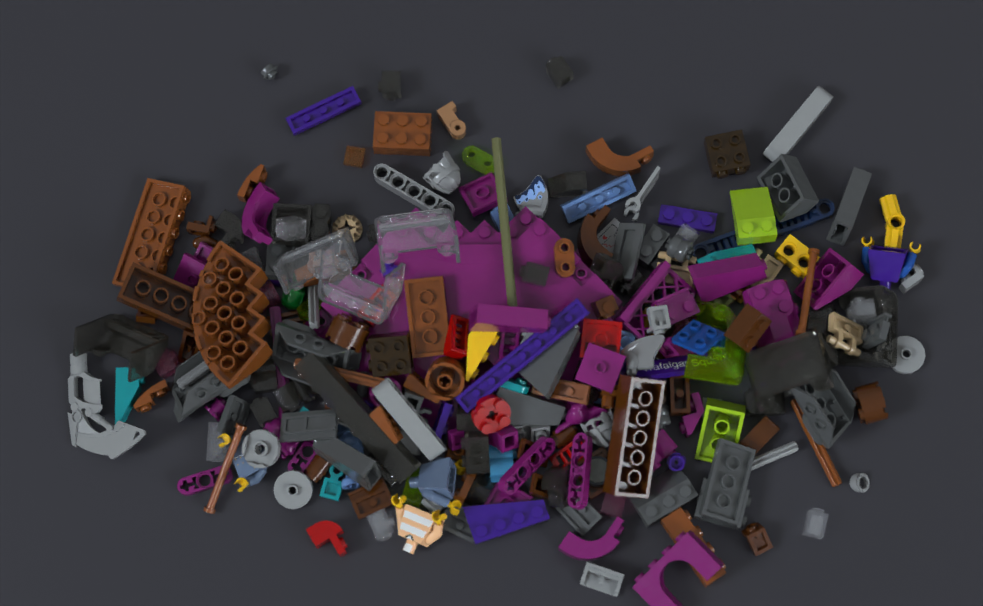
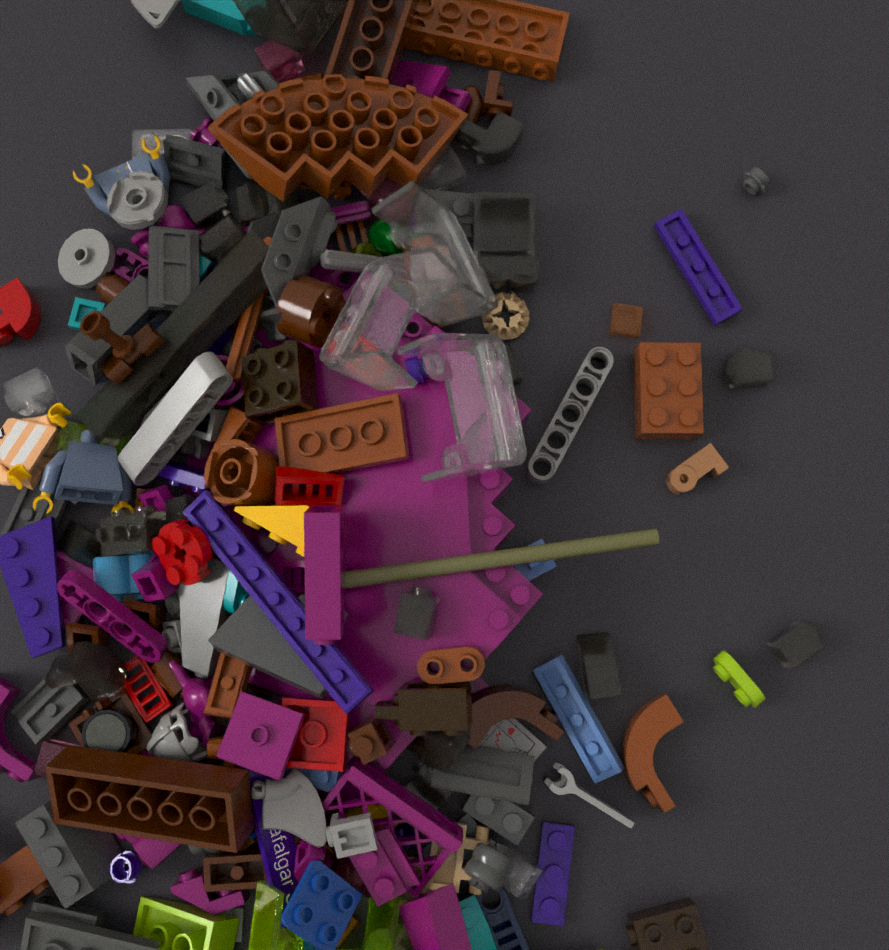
camera: 80 degrees right, 5 degrees up
(146, 401) = (227, 43): dark orange slope -> none
(192, 489) = (93, 123): magenta beam -> none
(240, 428) = (167, 165): dark orange bar -> none
(256, 213) = (517, 174): magenta arch -> none
(257, 175) = (582, 172): dark orange slope -> none
(290, 228) = (492, 219): clear brick -> none
(363, 445) = (125, 348): none -> reddish brown bar
(371, 501) = (68, 385): reddish brown plate -> none
(386, 423) = (161, 380): dark orange slope -> none
(444, 175) = (600, 464): light grey helmet -> none
(461, 494) = (78, 515): dark orange plate -> none
(478, 160) = (633, 517): clear neon green plate -> none
(480, 194) = (571, 518): magenta plate -> none
(534, 198) = (569, 609): arm -> none
(576, 471) = (102, 701): magenta beam -> none
(585, 101) = (730, 670): none -> lime plate
(588, 271) = (429, 707): none -> dark brown hinge

